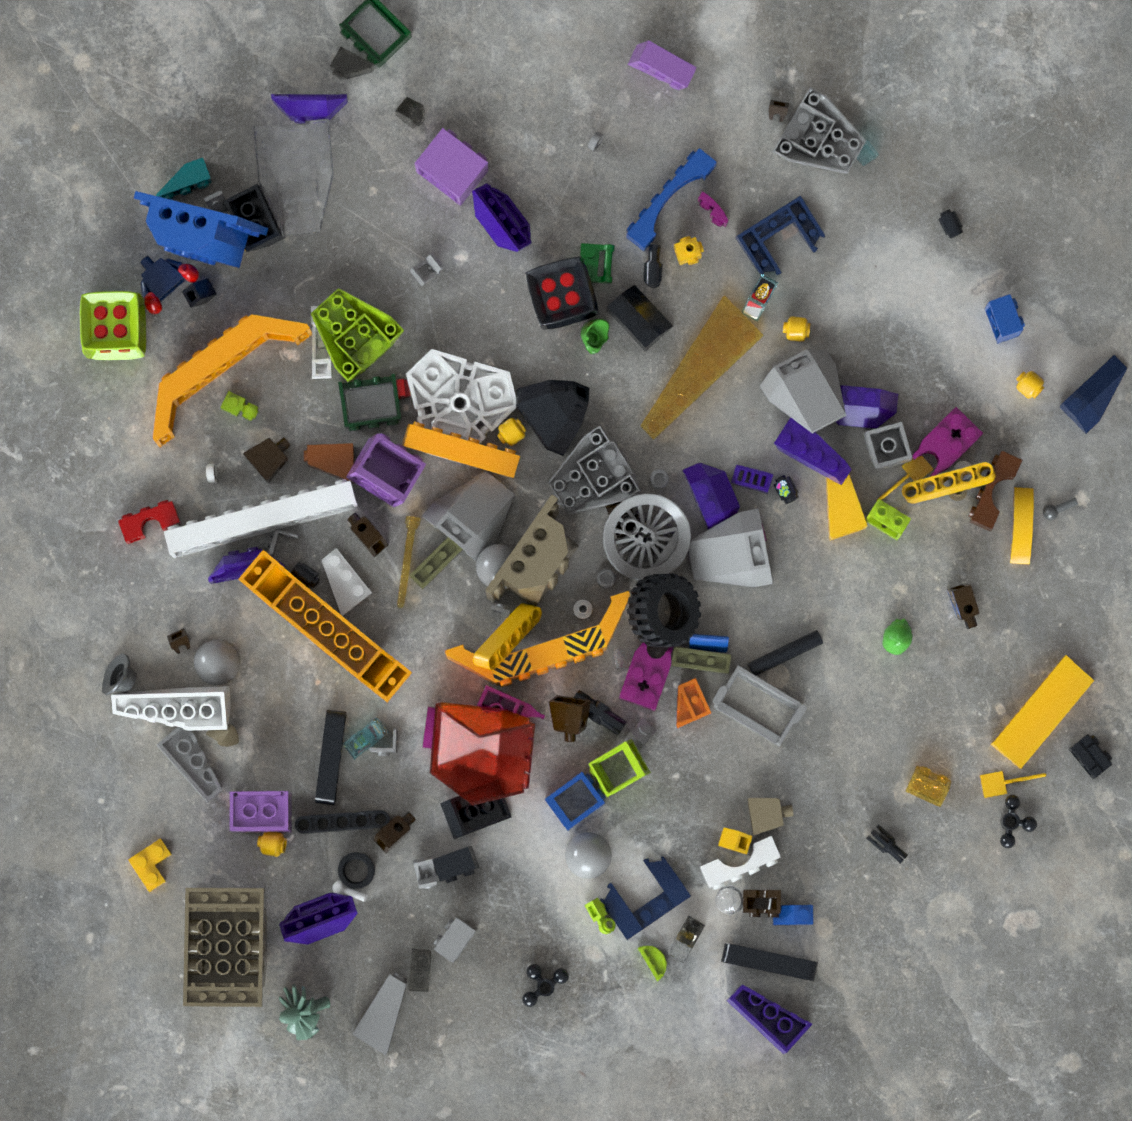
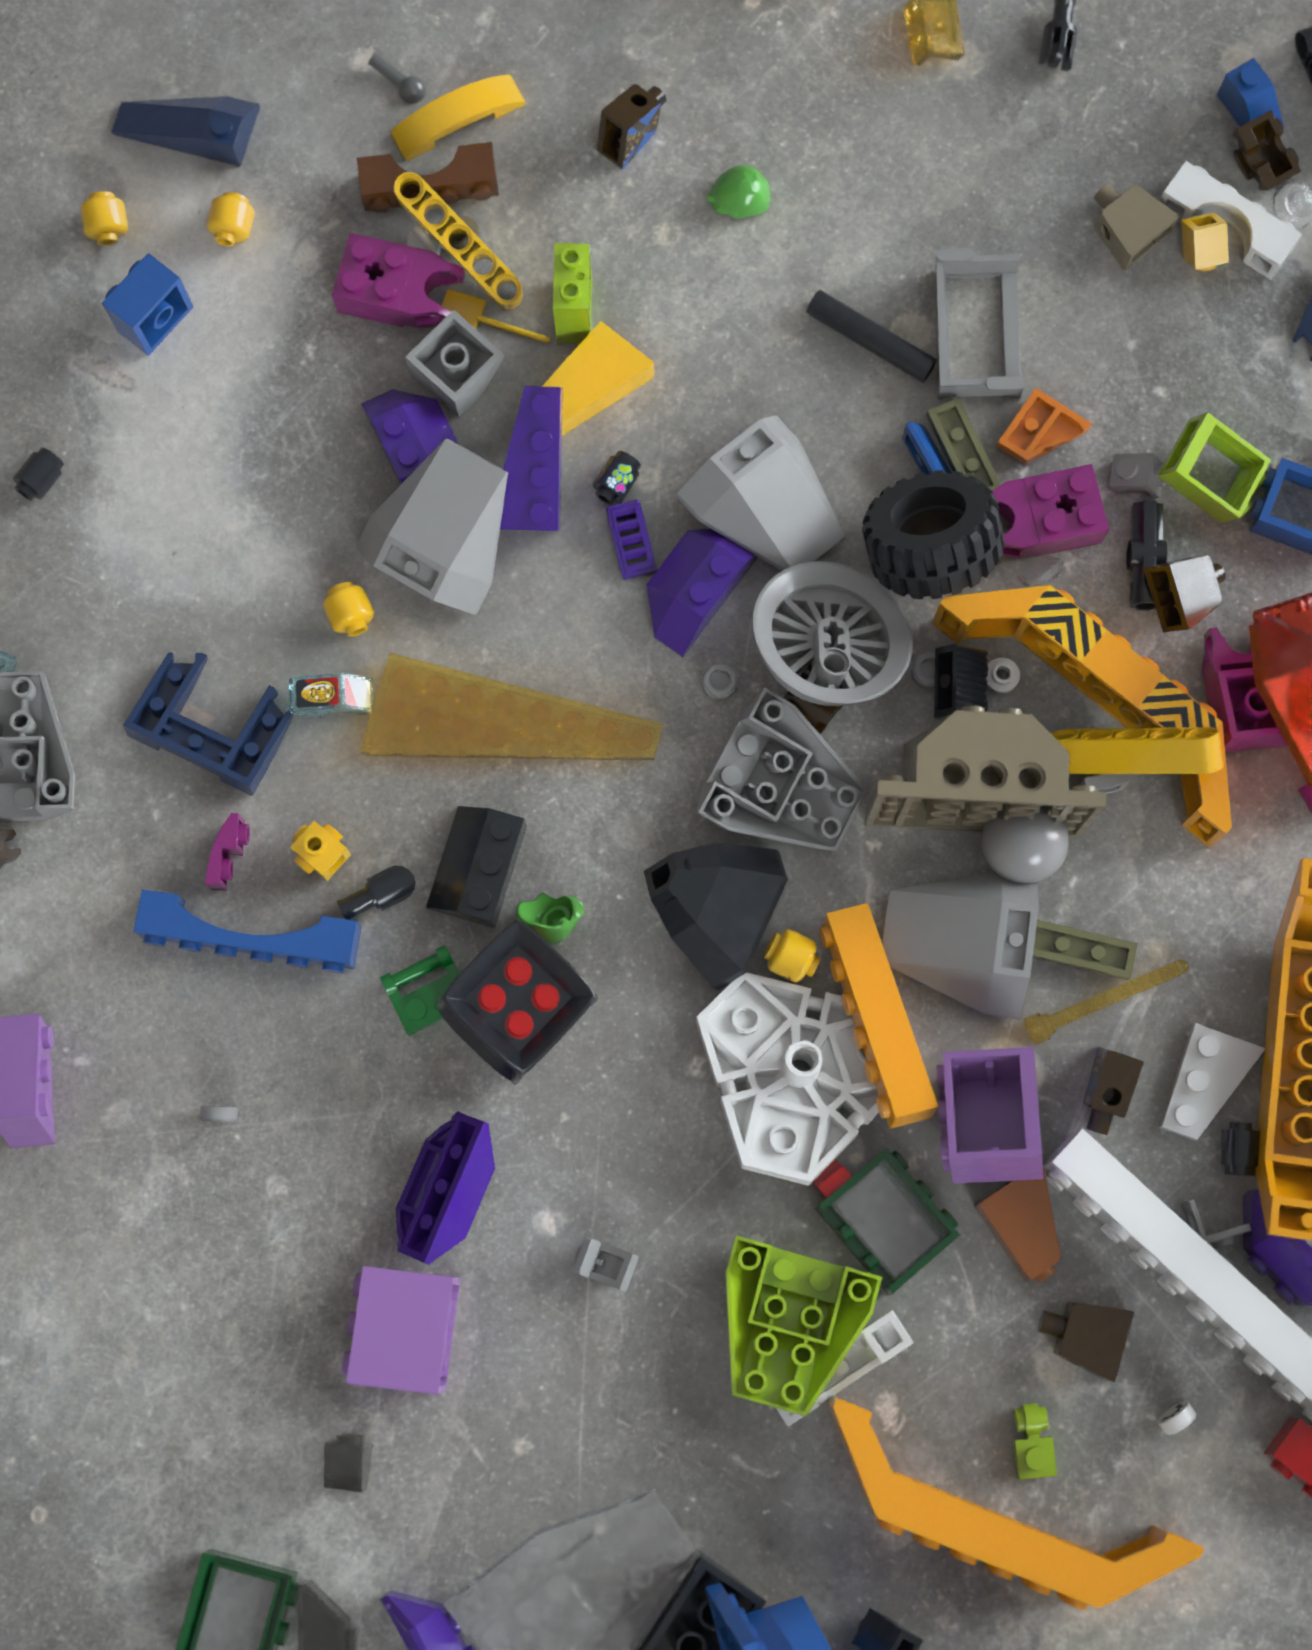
camera: 120 degrees left, 5 degrees down
(589, 585) = (959, 679): none -> black brick
(1065, 324) = (104, 218): none -> yellow head

